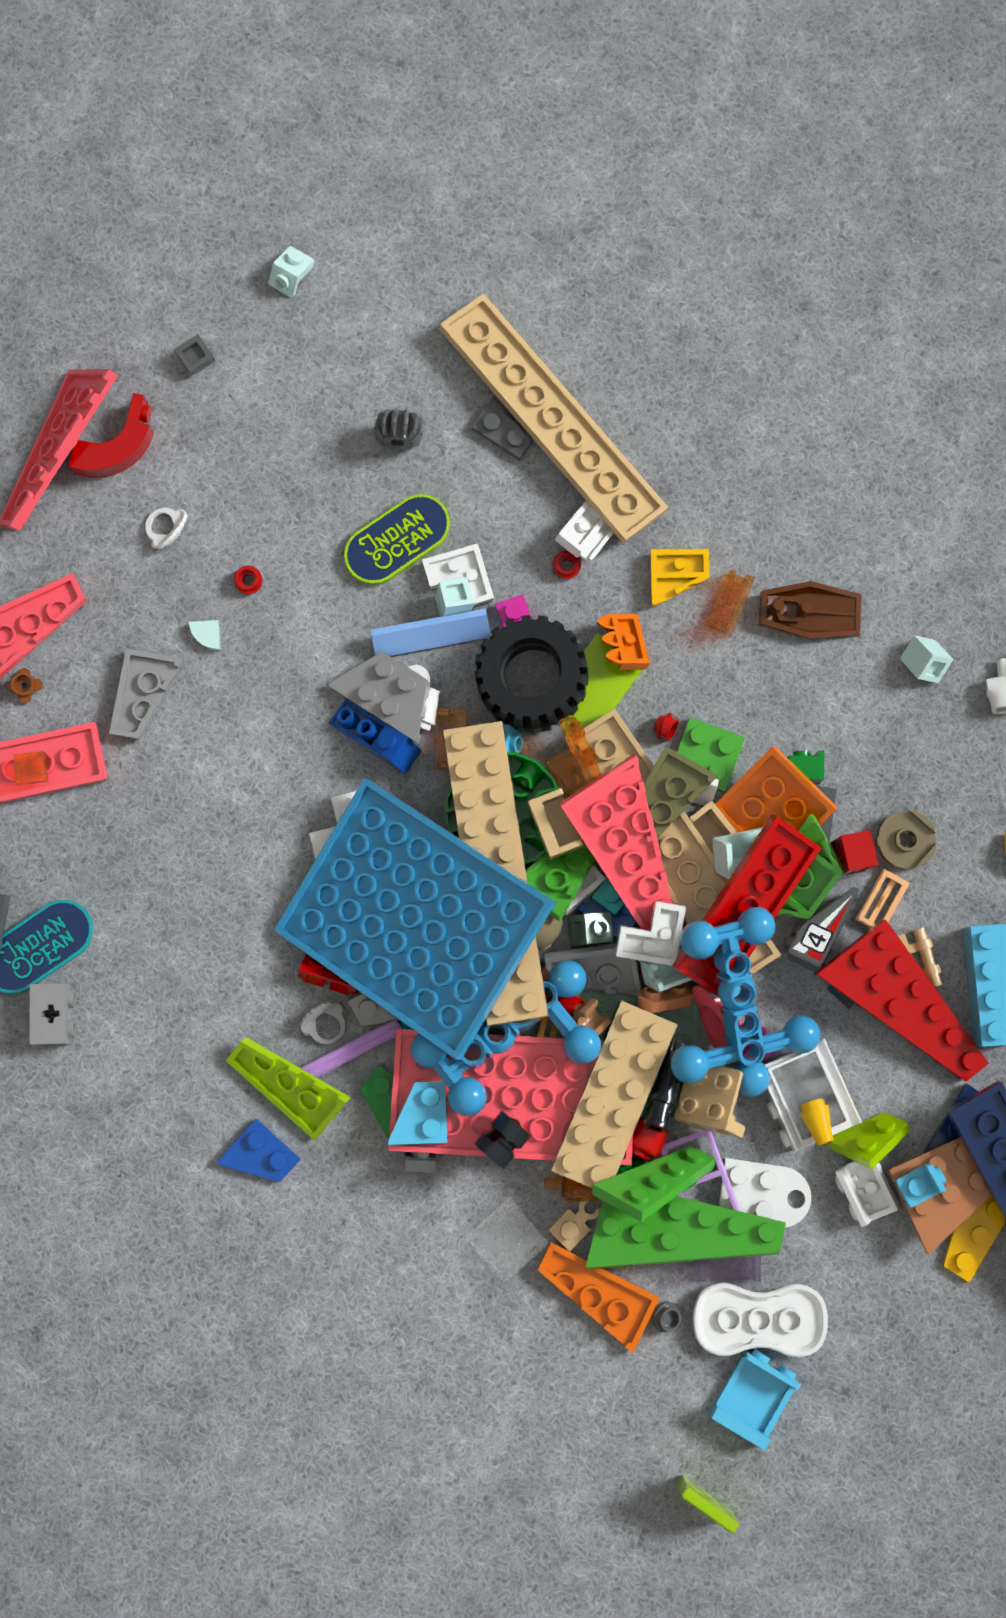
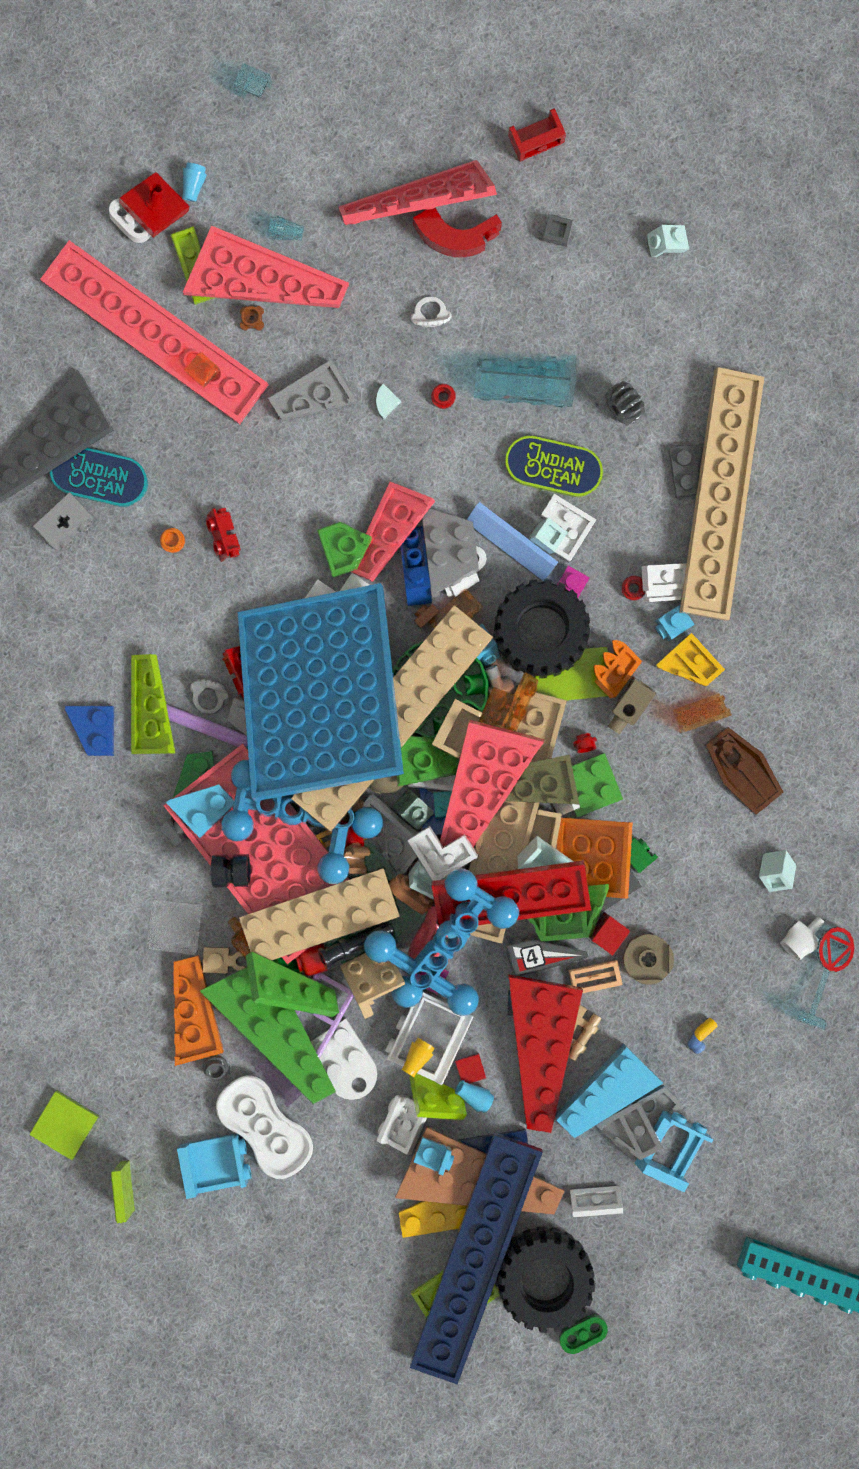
camera: 55 degrees right, 5 degrees up
(97, 300) = (537, 136): none -> red panel
(156, 931) = (172, 540): none -> orange plate
(179, 876) = (223, 544): none -> red hinge
(301, 784) = (343, 547): none -> bright green plate
(302, 495) = (527, 380): none -> clear light blue wedge
(321, 727) = (391, 525): none -> coral wing
(427, 765) = (424, 614): none -> dark orange plate
(541, 754) = (495, 680): none -> light grey plate
(597, 1507) = (64, 1125): none -> lime tile
(628, 558) = (673, 624): none -> medium azure bracket
(668, 642) = (635, 694): none -> dark tan torso
(868, 1085) = (470, 1068): none -> red tile
(898, 1101) = (477, 1097): none -> medium azure cone

